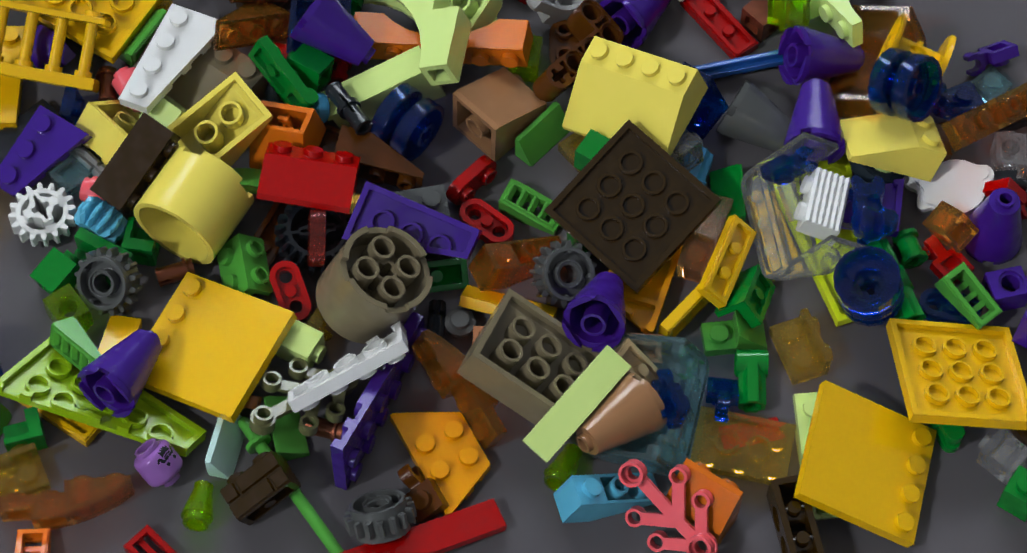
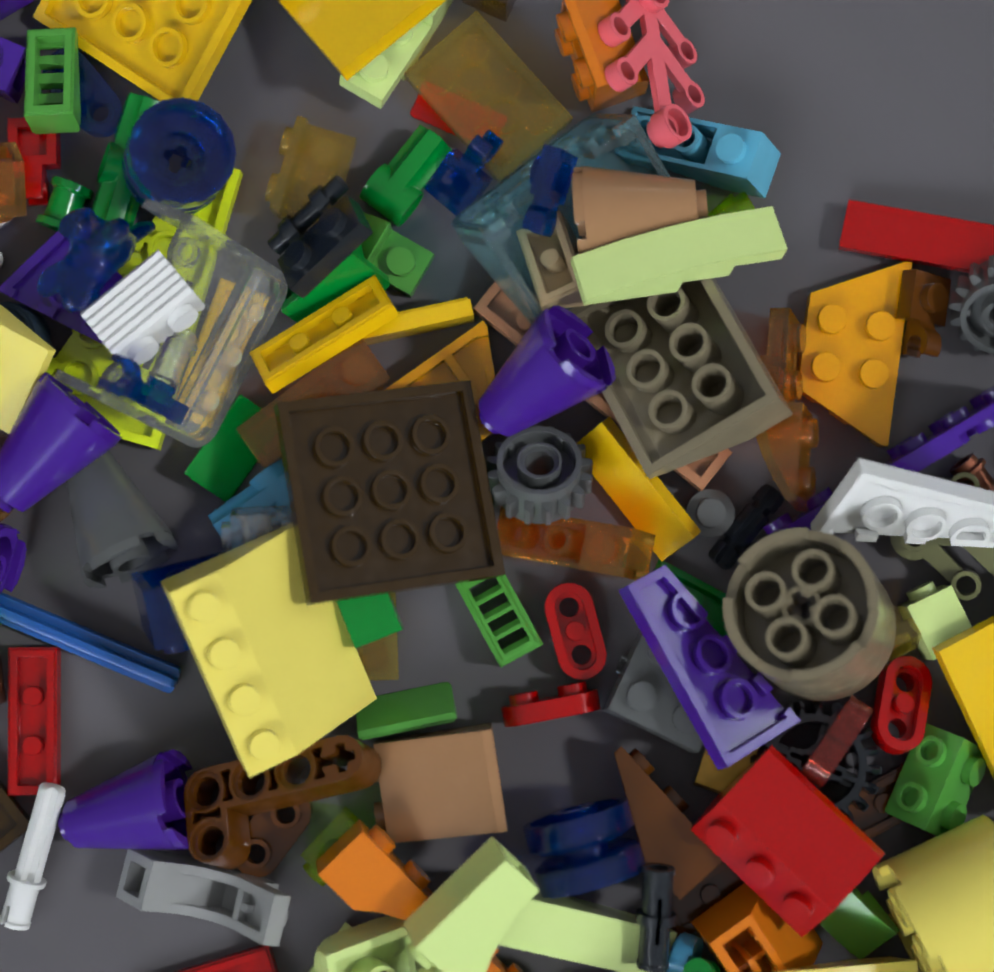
camera: 145 degrees left, 25 degrees up
(763, 304) = (317, 252): none -> black plate

